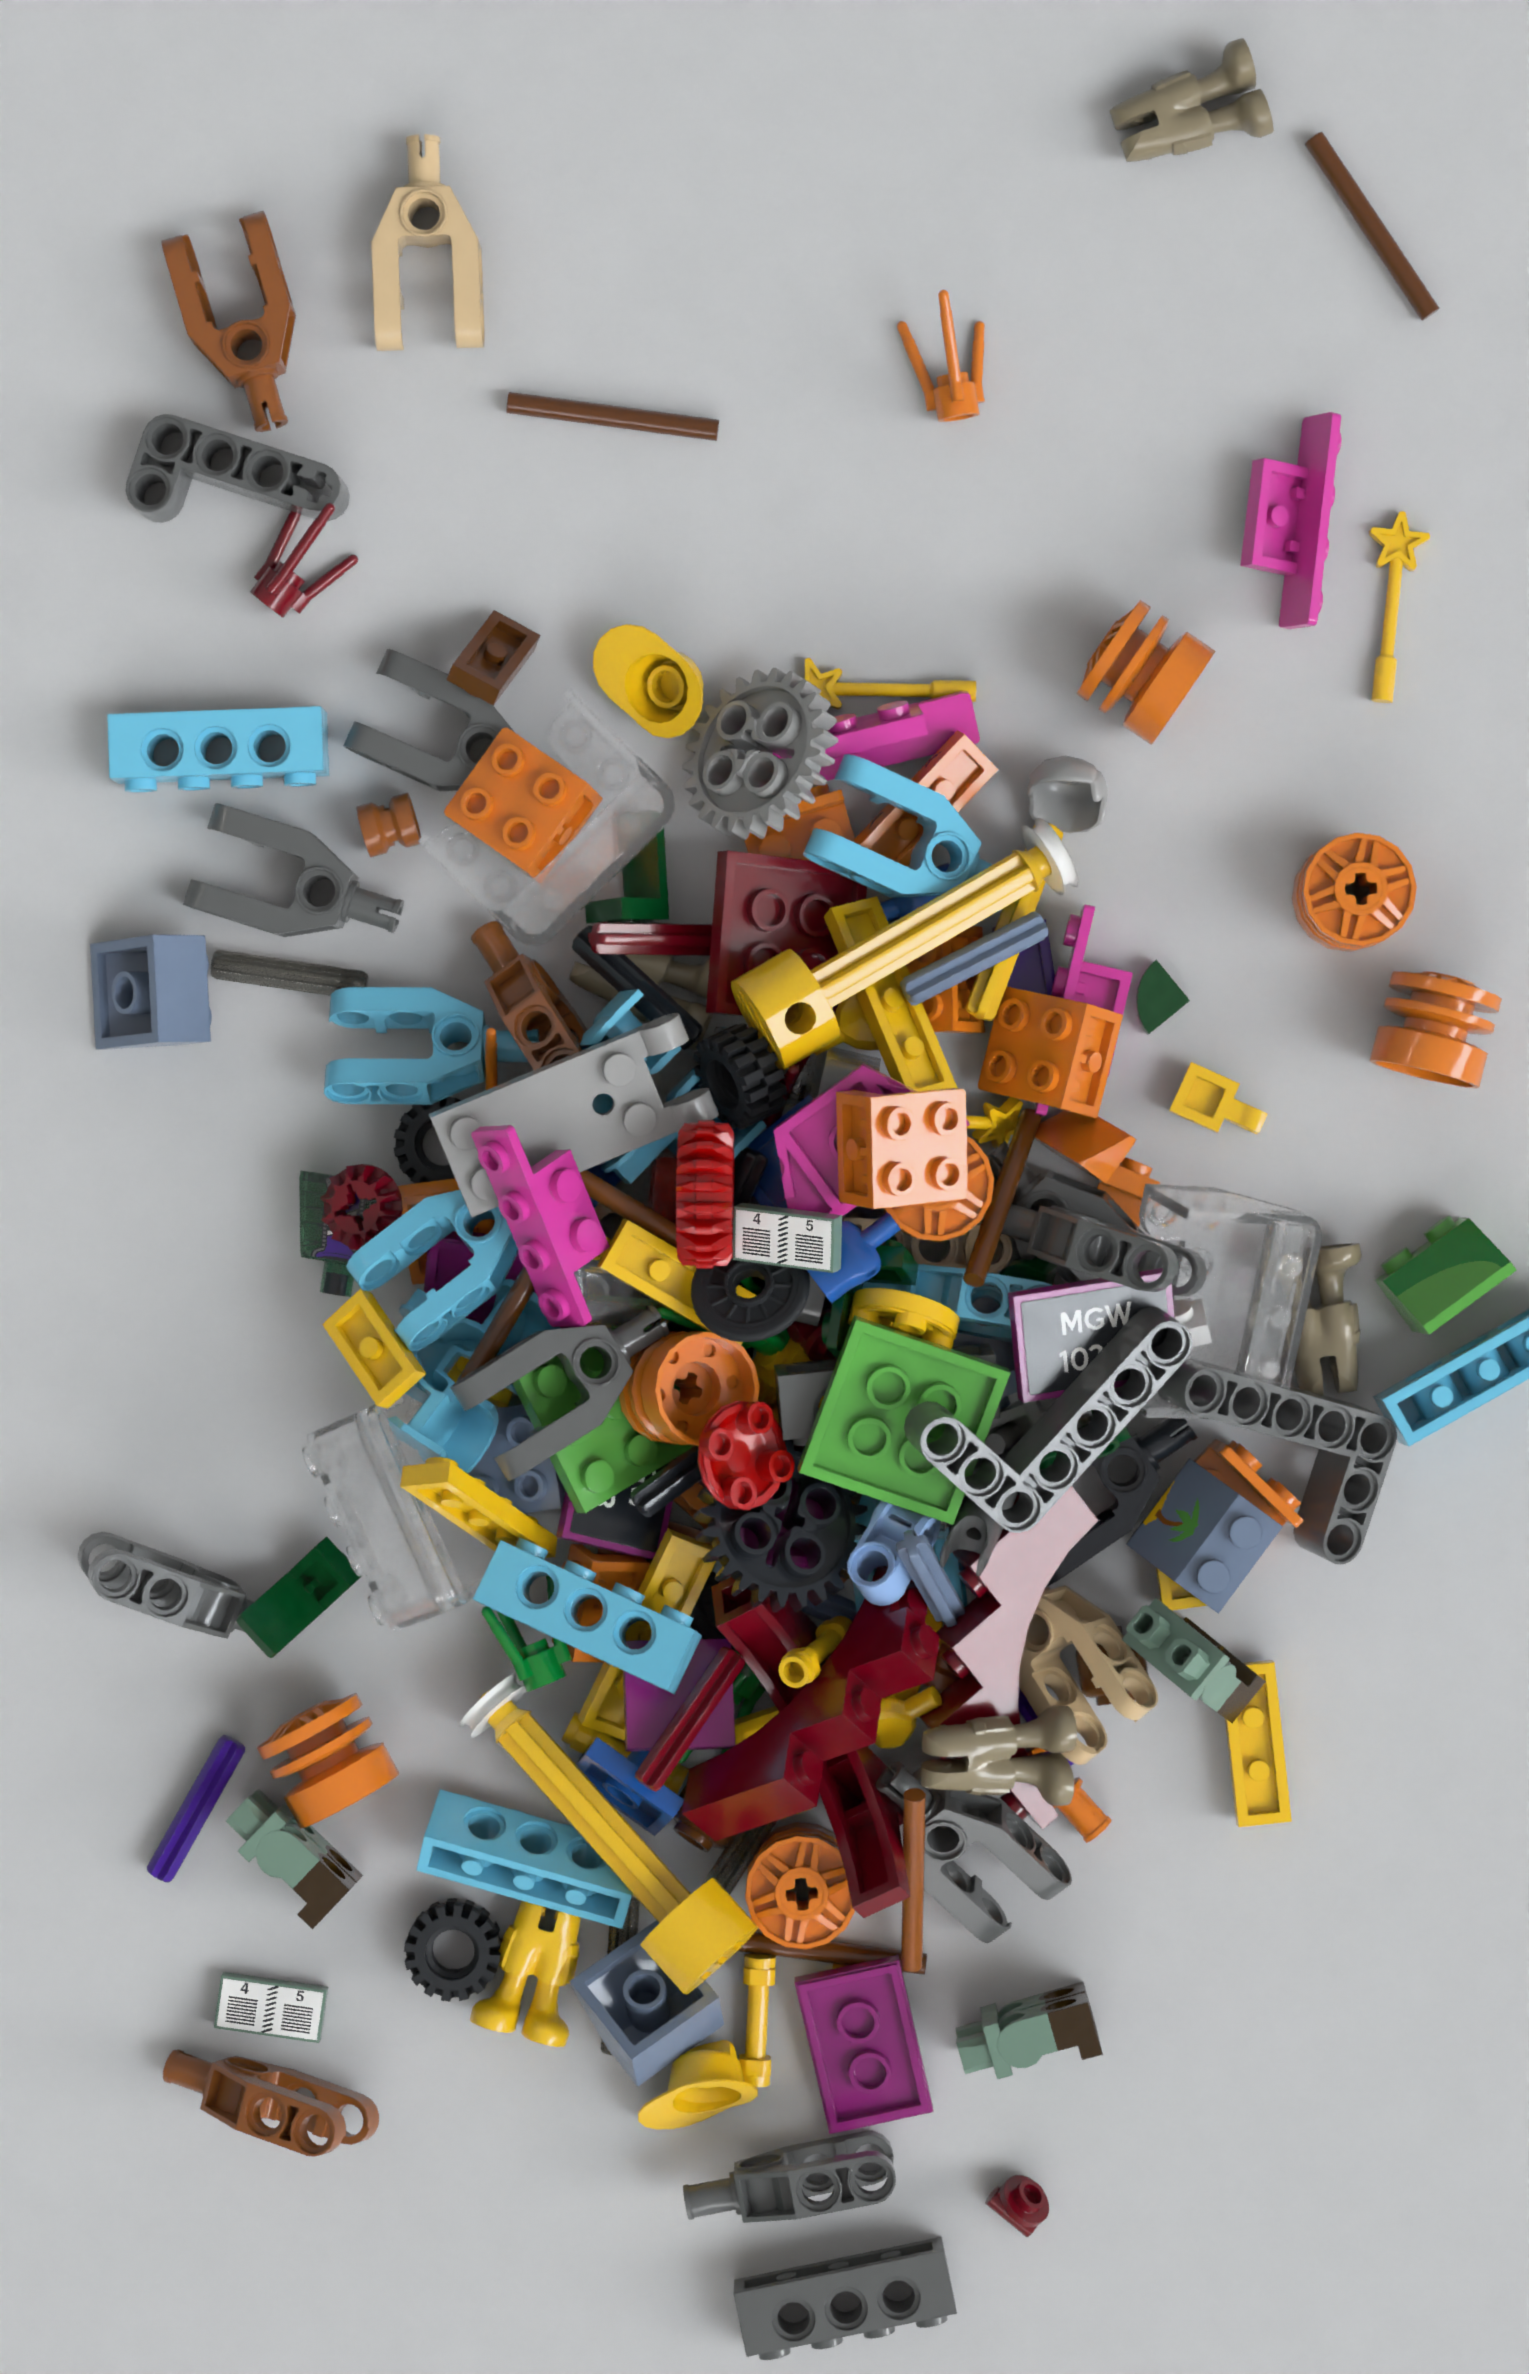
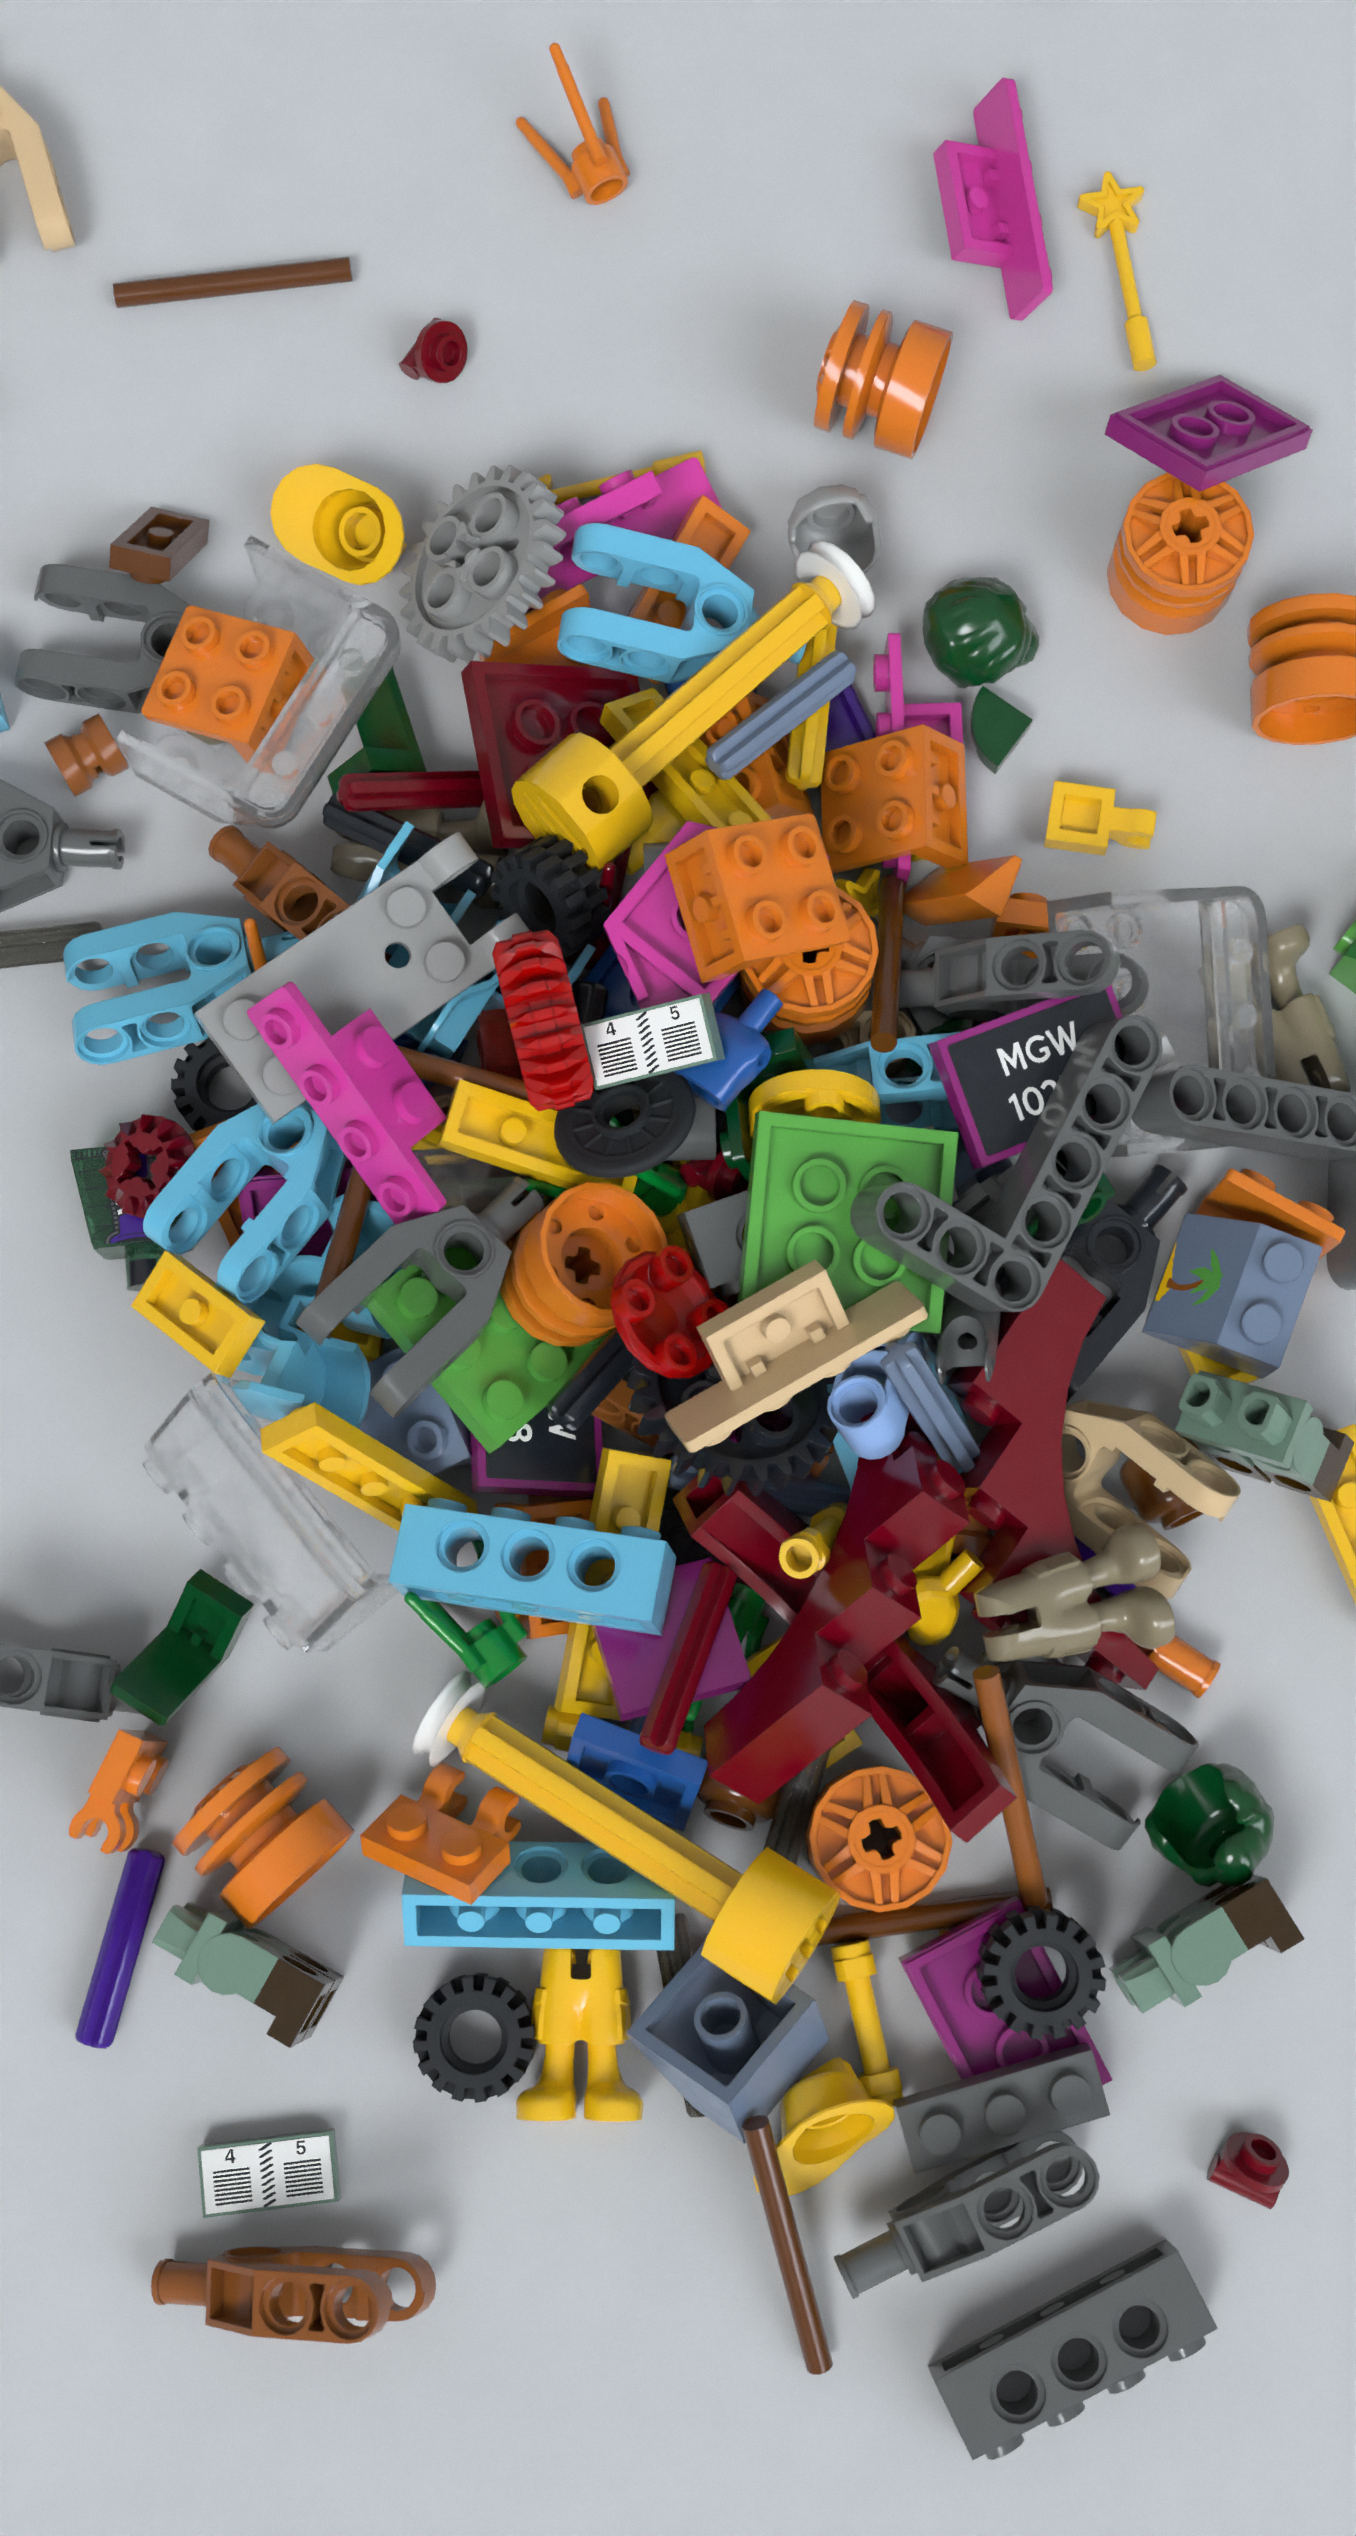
camera: 20 degrees left, 10 degrees down
(233, 1686) = (128, 1770): none -> orange plate
(462, 1807) = (435, 1847): none -> orange plate
(650, 2167) = (787, 2244): none -> reddish brown bar
(772, 531) = (437, 353): none -> dark red plate
(825, 1512) = (784, 1344): none -> tan bracket
(841, 2110) = (1001, 2107): none -> dark grey plate
(904, 2051) = (1065, 2005): none -> black tyre
(1064, 1944) = (1212, 1825): none -> dark green hair
(1165, 912) = (978, 631): none -> dark green hair
(1408, 796) = (1208, 432): none -> magenta tile

